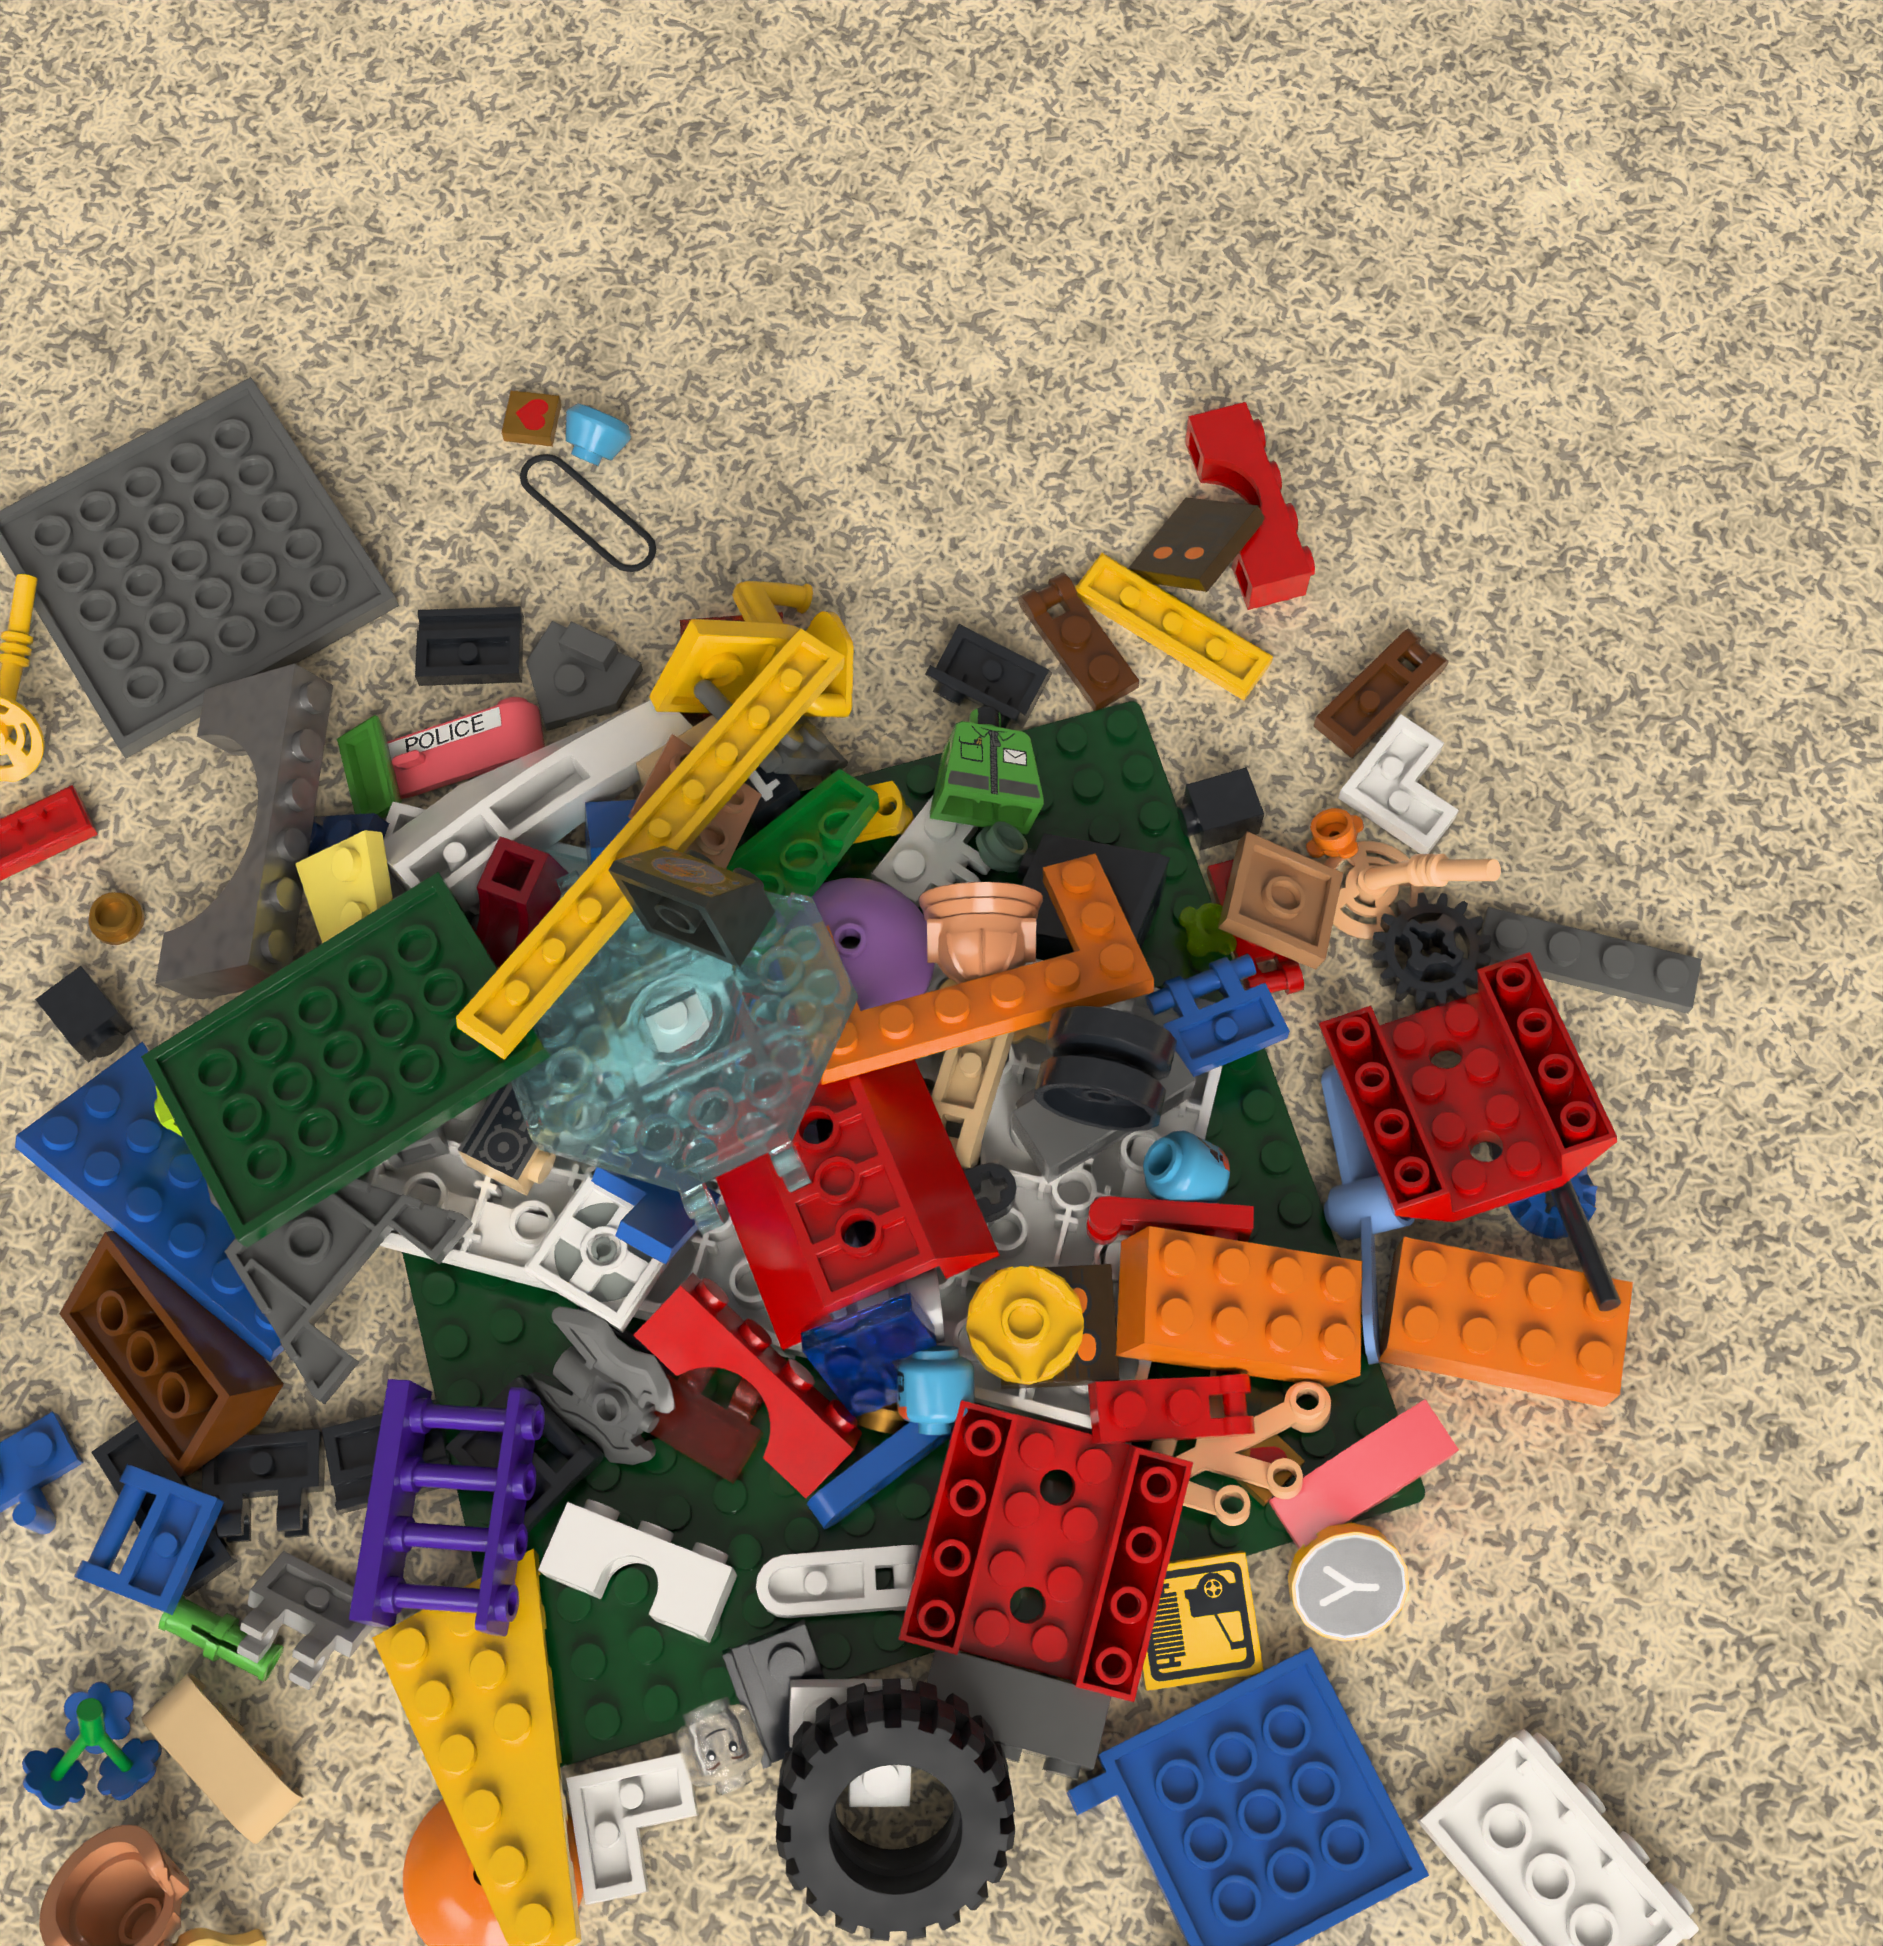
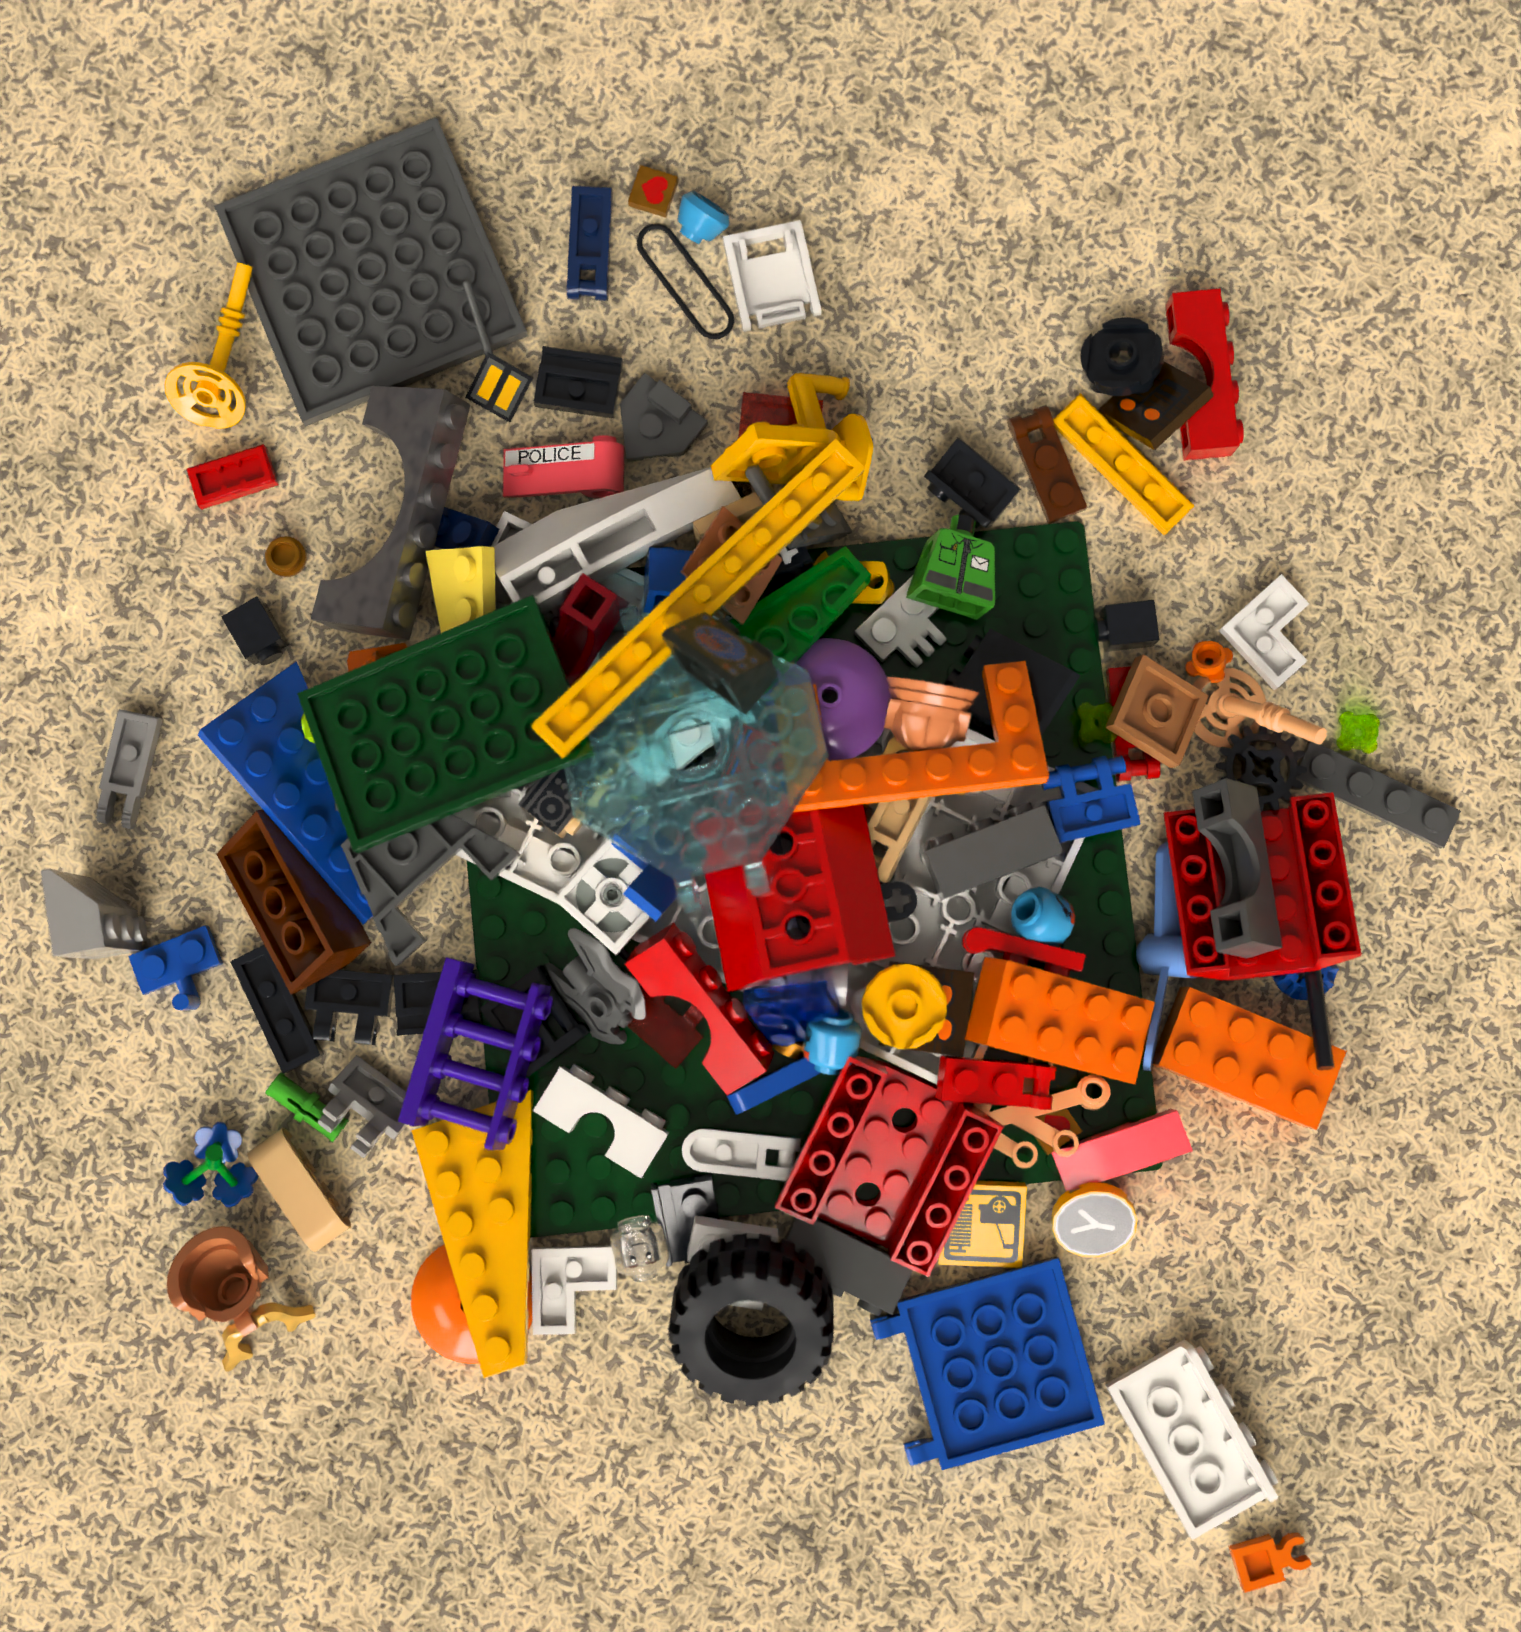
camera: 10 degrees right, 15 degrees up
(164, 1547) = (275, 1042): blue plate -> none
(367, 665) = (497, 384): none -> piece
(369, 768) = (488, 474): bright green tile -> none
(460, 486) = (589, 241): none -> dark blue plate
(698, 498) = (772, 284): none -> white container
(1001, 847) = (956, 629): sand green plate -> none
(1105, 1068) = (999, 840): black wheel -> none
(1163, 516) = (1128, 377): none -> black plate
(1379, 693) = (1269, 552): reddish brown plate -> none
(1456, 1121) = (1232, 822): none -> dark grey arch
(1553, 875) = (1369, 732): none -> clear neon green plate

